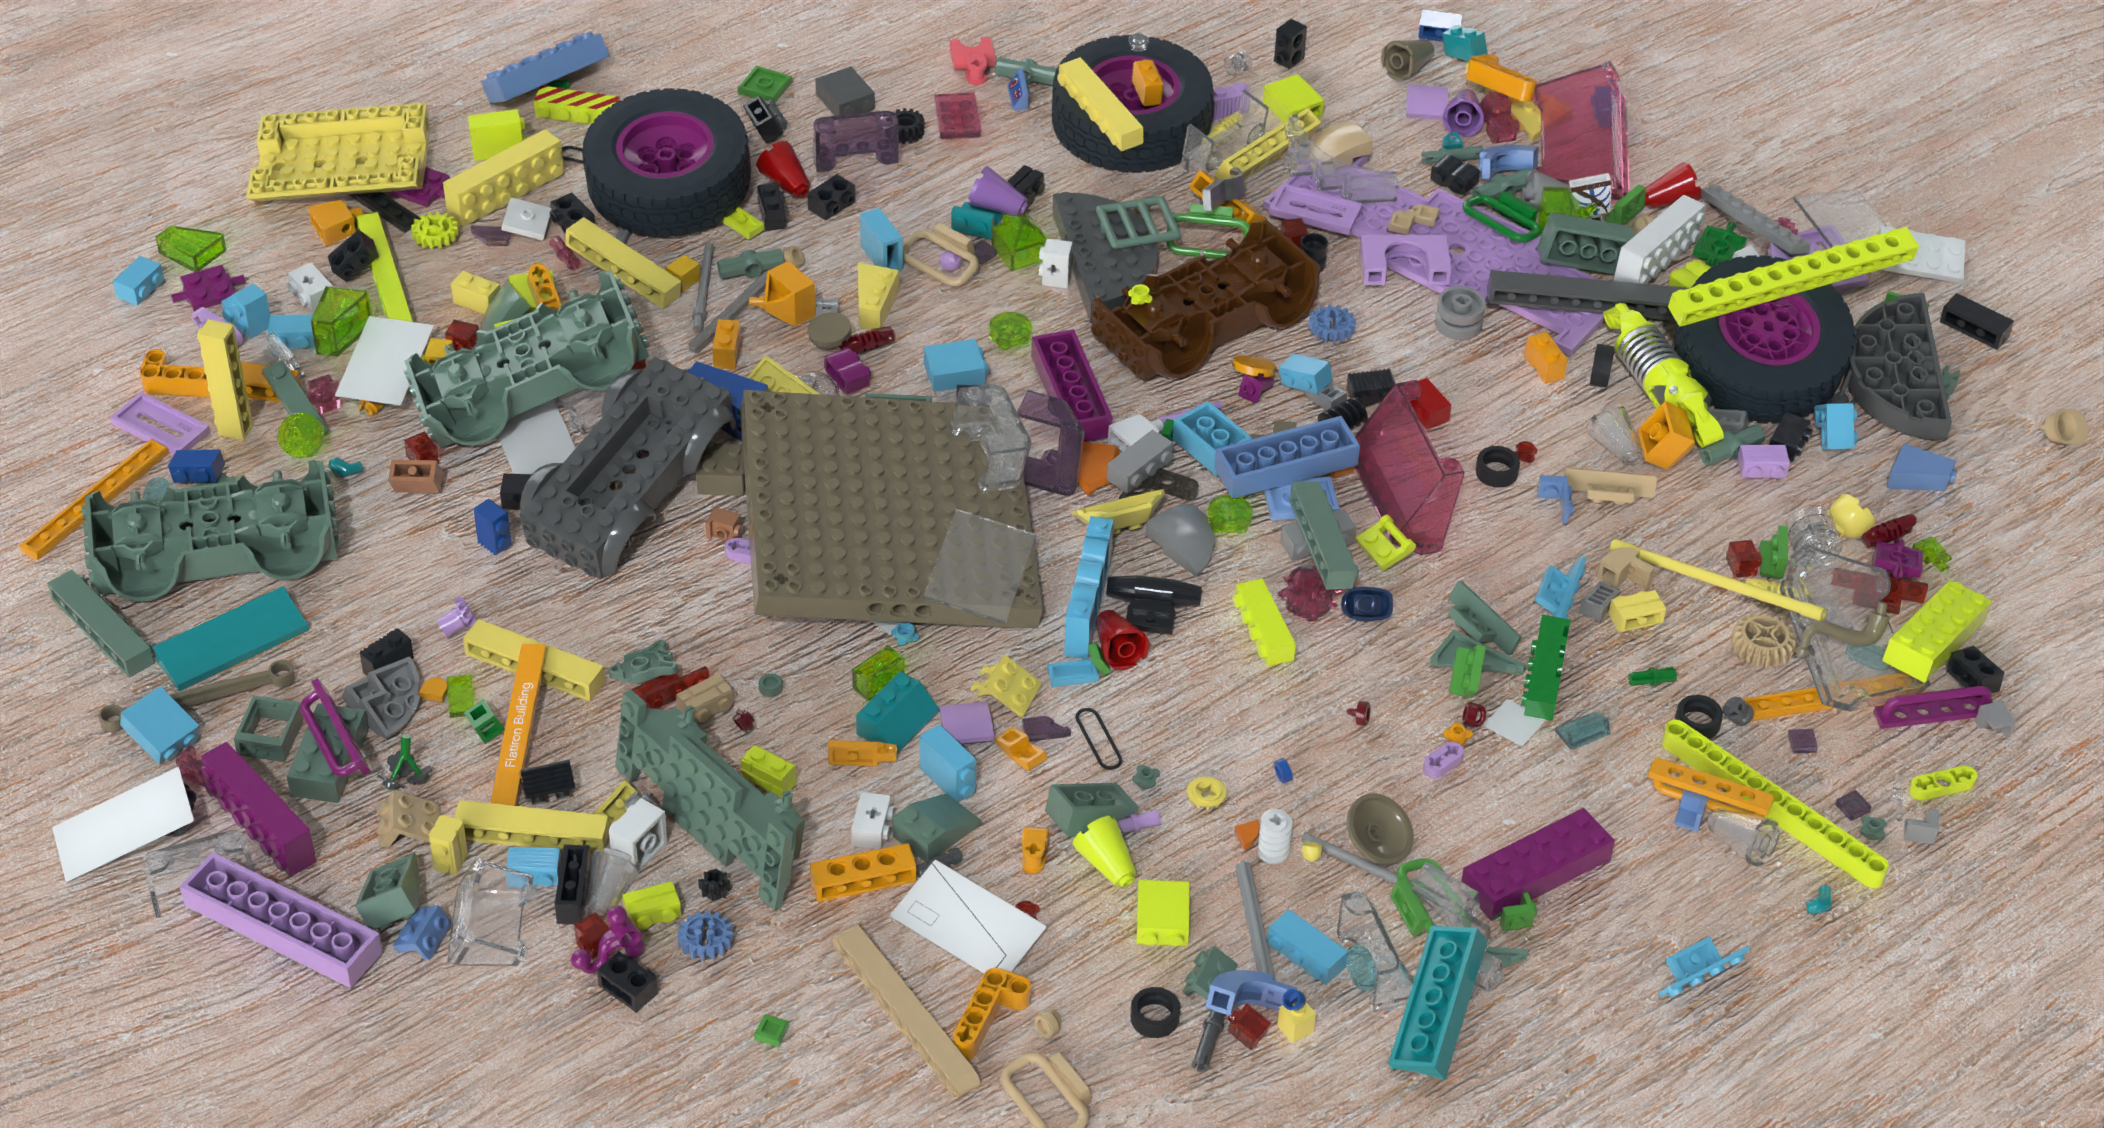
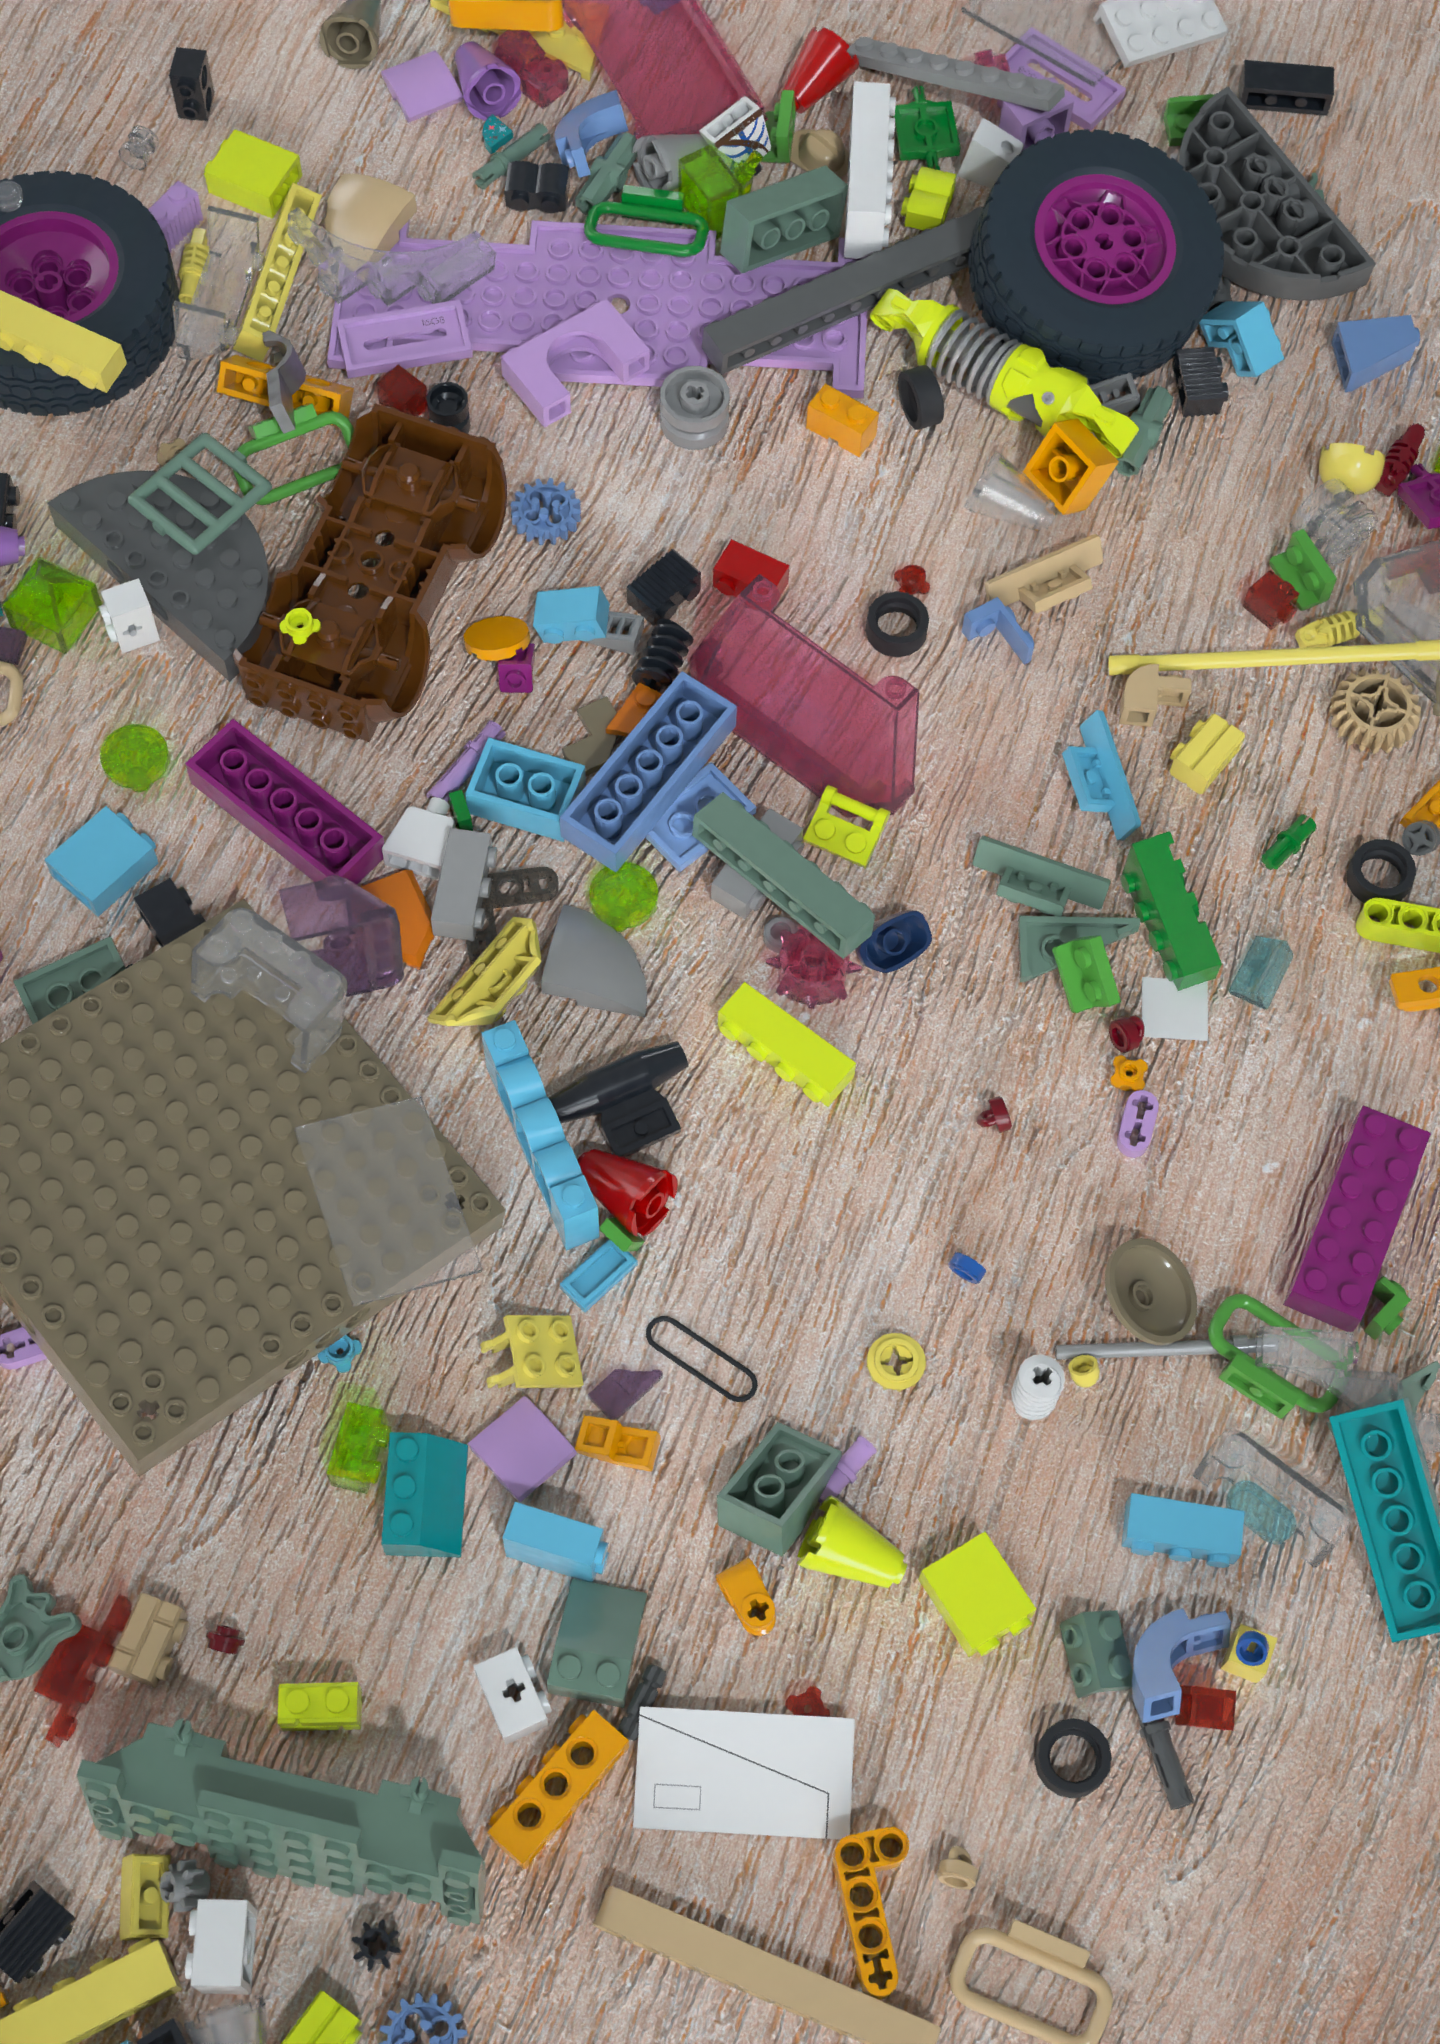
camera: 35 degrees left, 20 degrees up
(770, 685) = (216, 1551): sand green tile -> none
(860, 753) = (421, 1590): light orange hinge -> none
(1145, 777) = (805, 1395): sand green plate -> none
(1147, 82) = (61, 255): light orange brick -> none
(1247, 833) = (988, 1392): orange tile -> none
(1254, 918) = (1092, 1530): light grey axle -> none
(1403, 220) = (539, 277): tan tile -> none
(1597, 605) = (1150, 781): light grey slope -> none
(1763, 461) = (1195, 436): lavender brick -> none
(1792, 276) = (1098, 157): neon yellow brick -> none

